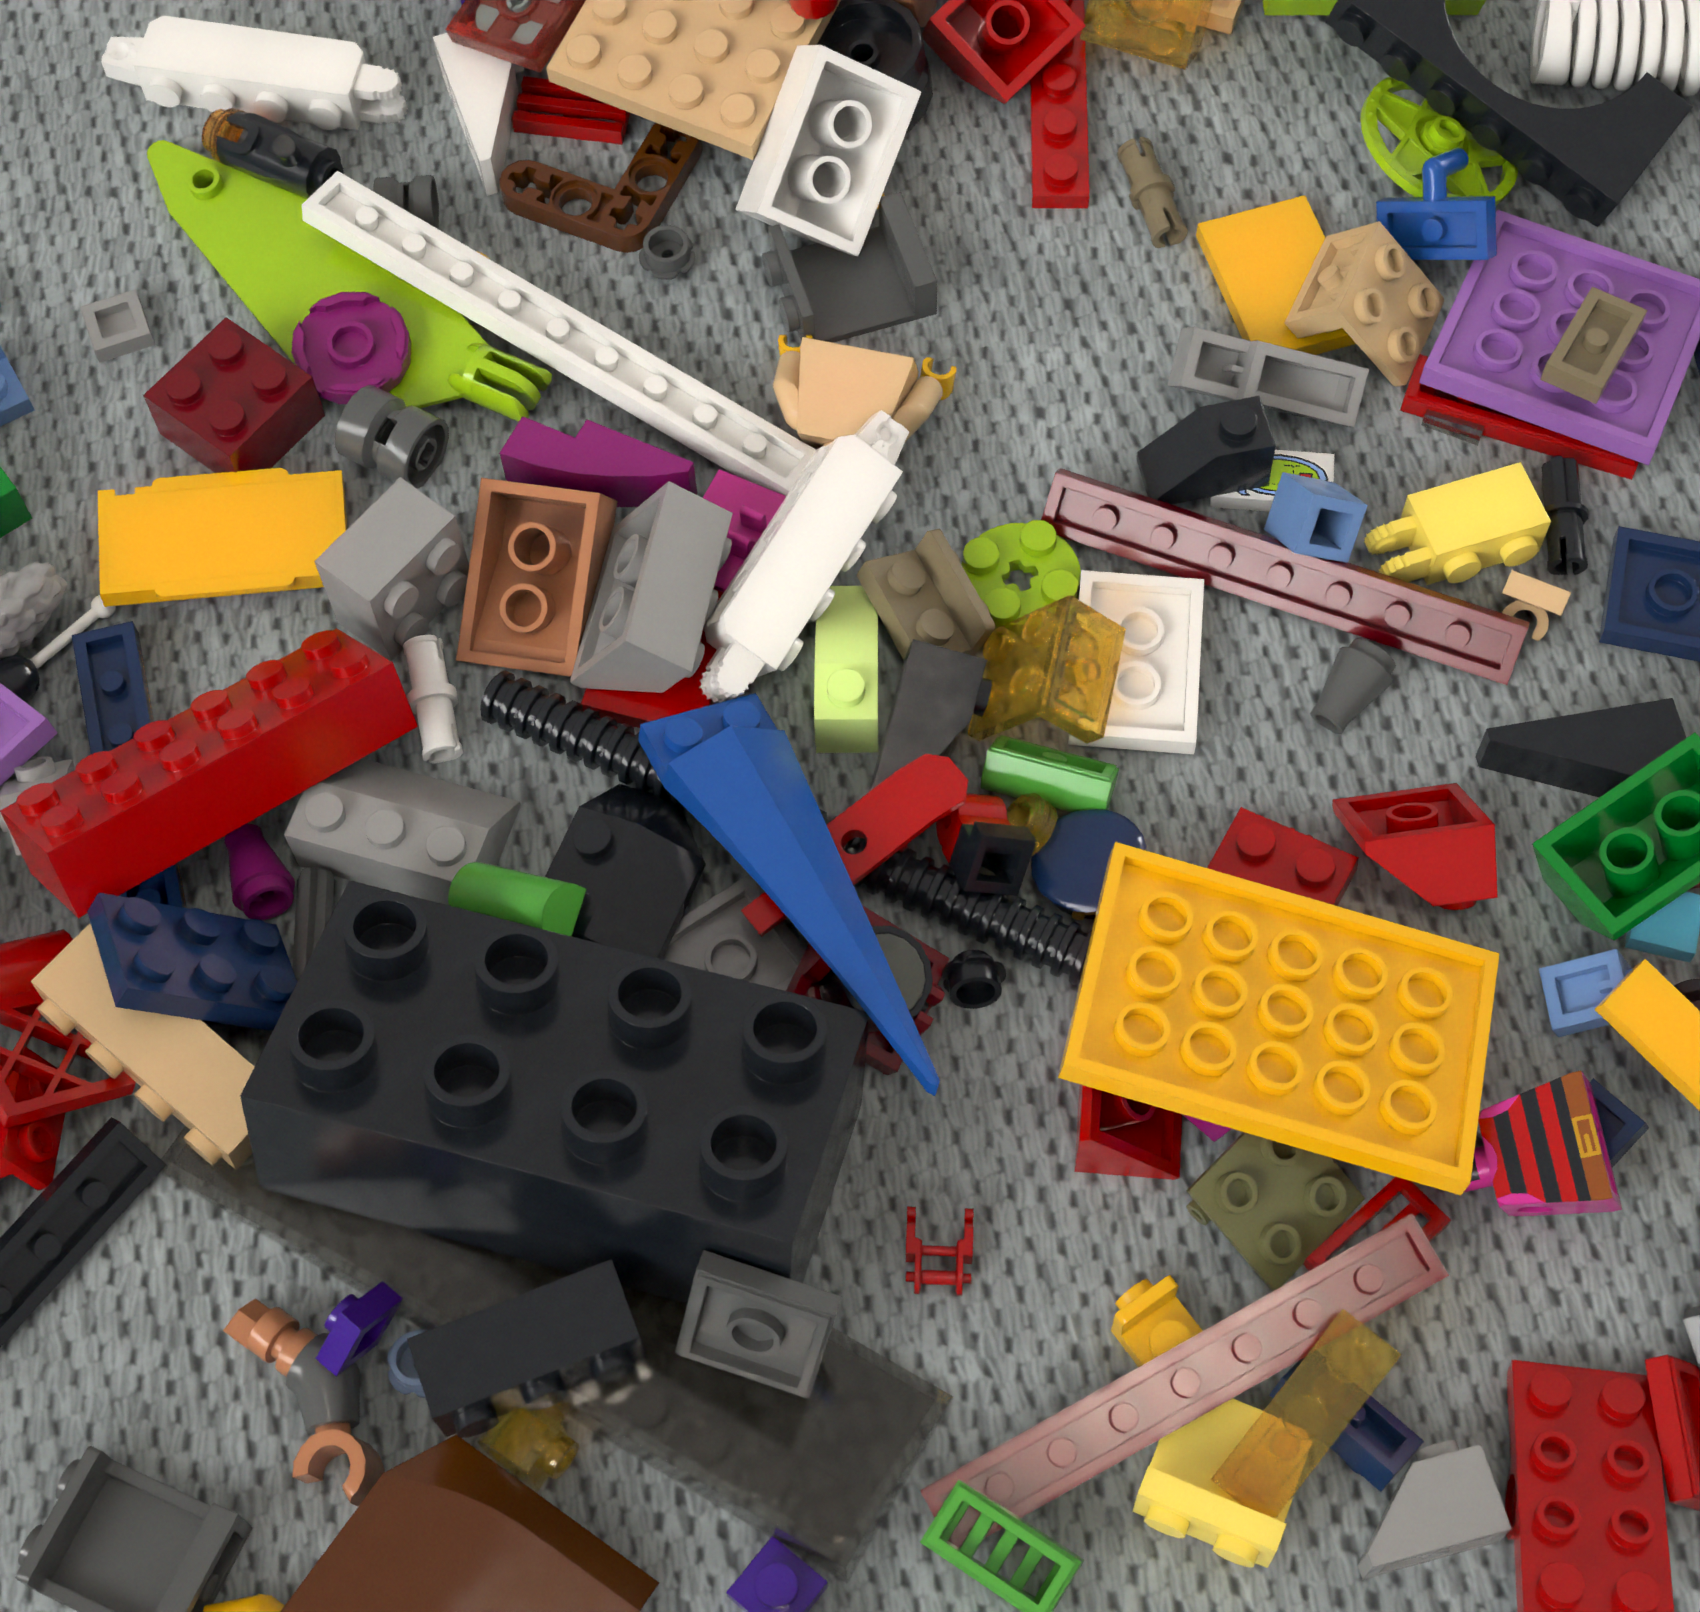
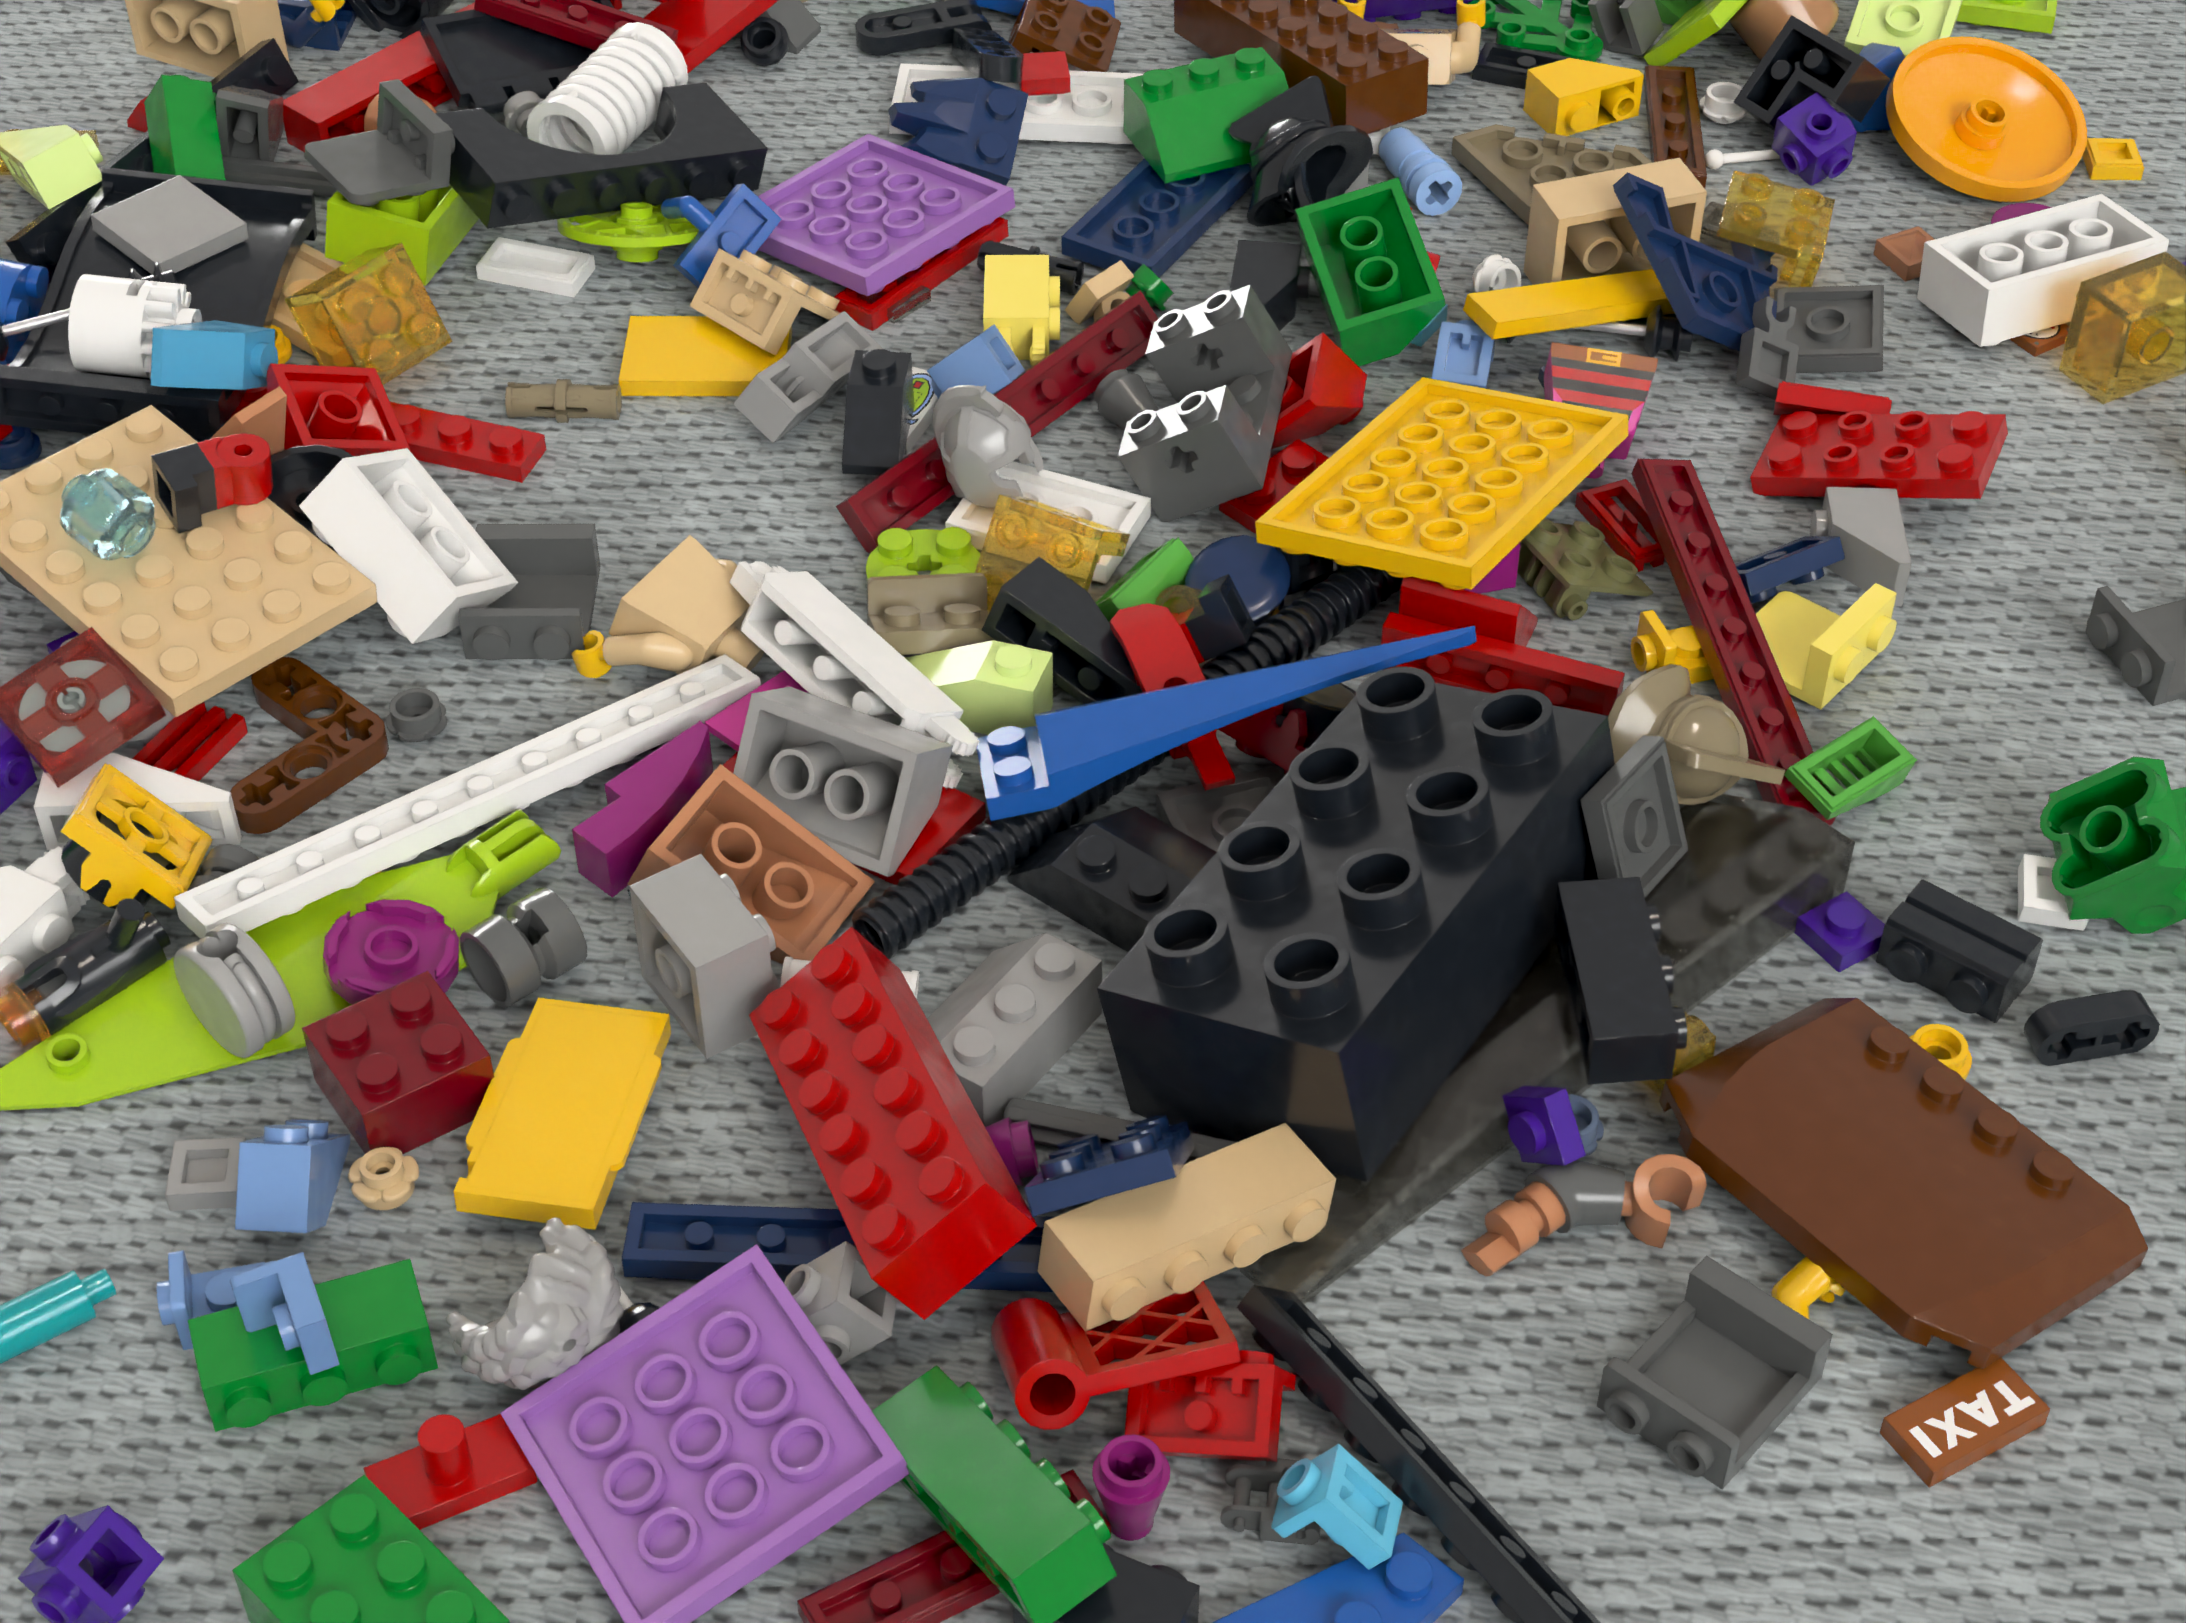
camera: 75 degrees left, 20 degrees down
(99, 376) = (289, 1177): none -> medium blue slope
(141, 453) = (387, 1189): none -> tan plate
(254, 255) = (234, 990): none -> light grey head
(400, 118) = (130, 843): none -> yellow piece
(517, 897) = (1147, 895): bright green brick -> none
(937, 1357) = (1700, 734): none -> dark tan helmet
(1053, 1184) = (1500, 666): none -> red plate
(1166, 560) = (978, 438): none -> light grey helmet
(1278, 784) = (1228, 383): none -> dark grey plate
(1307, 1416) = (1780, 560): clear yellow plate -> none
(1351, 79) = (535, 267): none -> white tile
(1573, 639) = (1151, 286): none -> green plate
(1593, 345) = (904, 184): dark tan plate -> none

